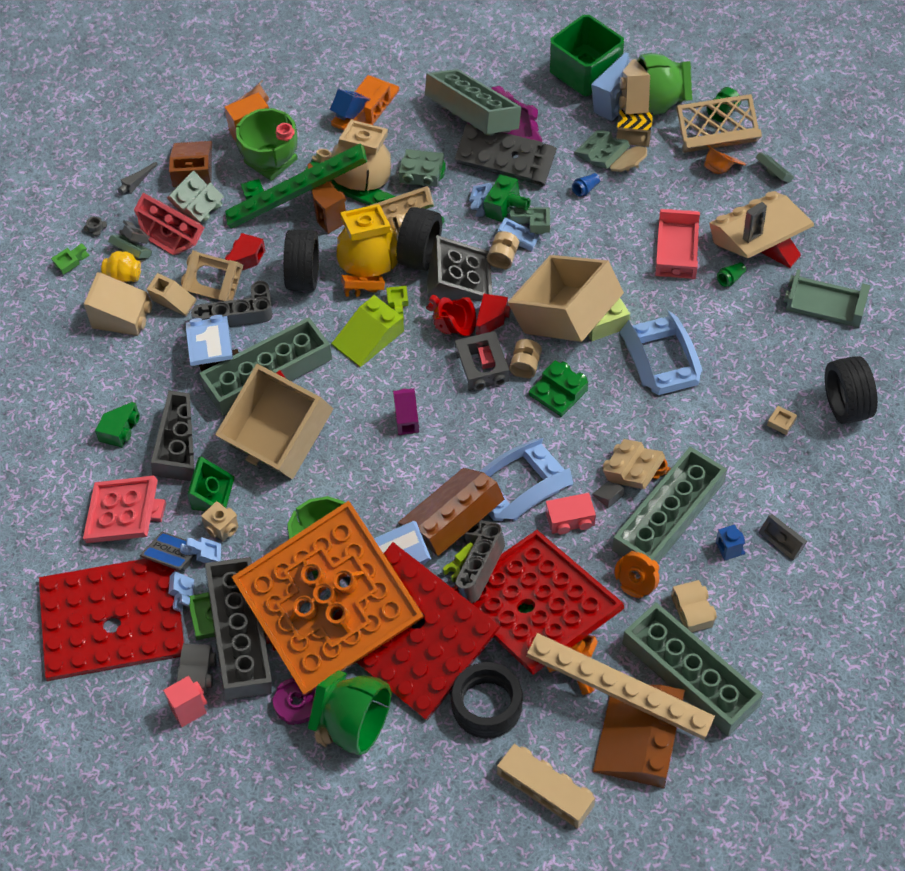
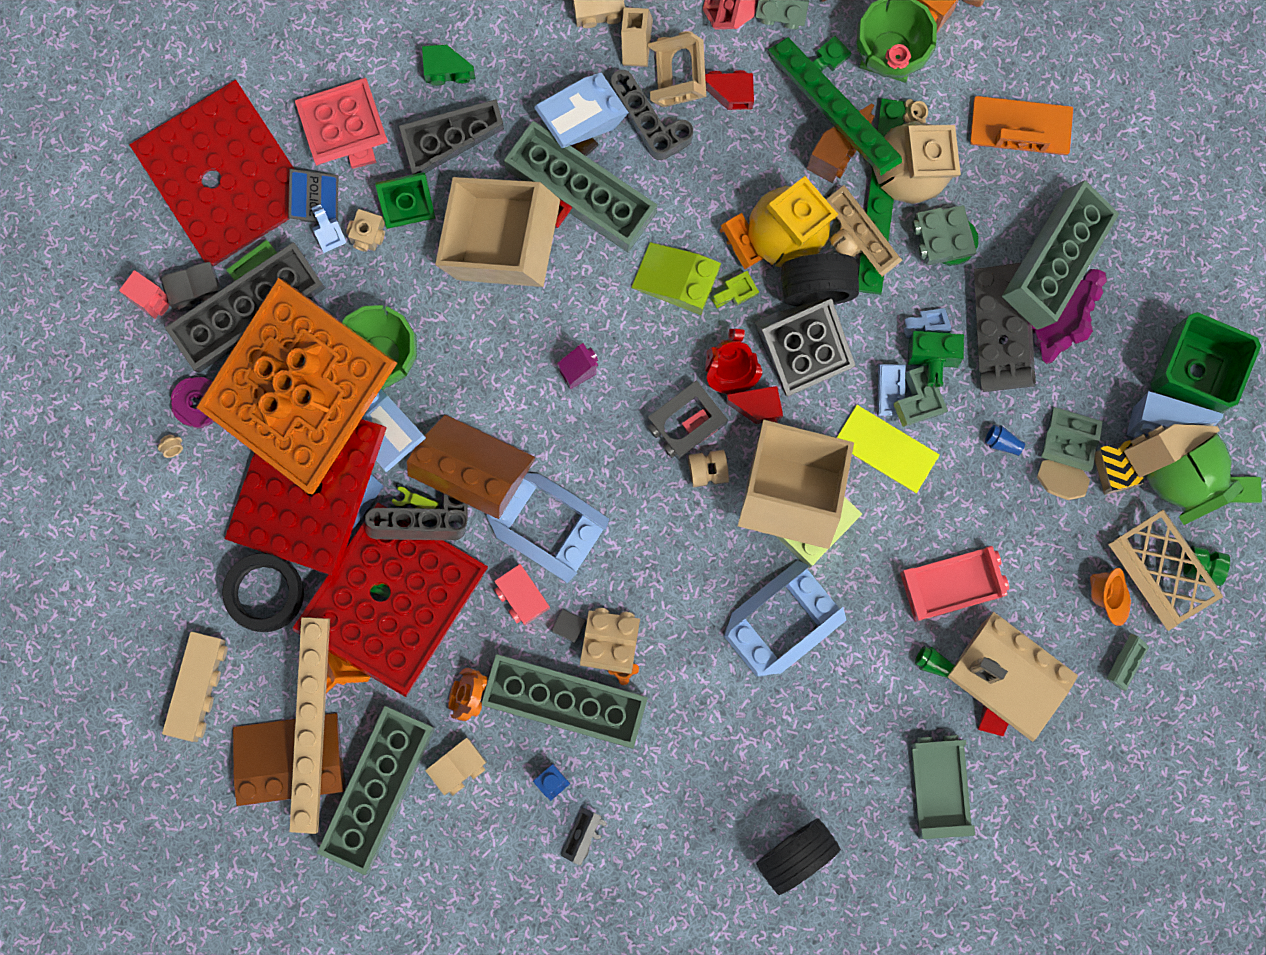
camera: 60 degrees right, 25 degrees up
(181, 588) = (274, 228): light blue plate -> none
(301, 260) = (732, 159): black tyre -> none
(348, 104) = (1007, 106): blue slope -> none
(349, 712) = (189, 462): green plate -> none
(503, 250) = (847, 382): tan wheel -> none
(559, 387) = (686, 521): green plate -> none
(572, 243) = (888, 449): none -> neon yellow piece
(782, 420) = (741, 788): tan plate -> none

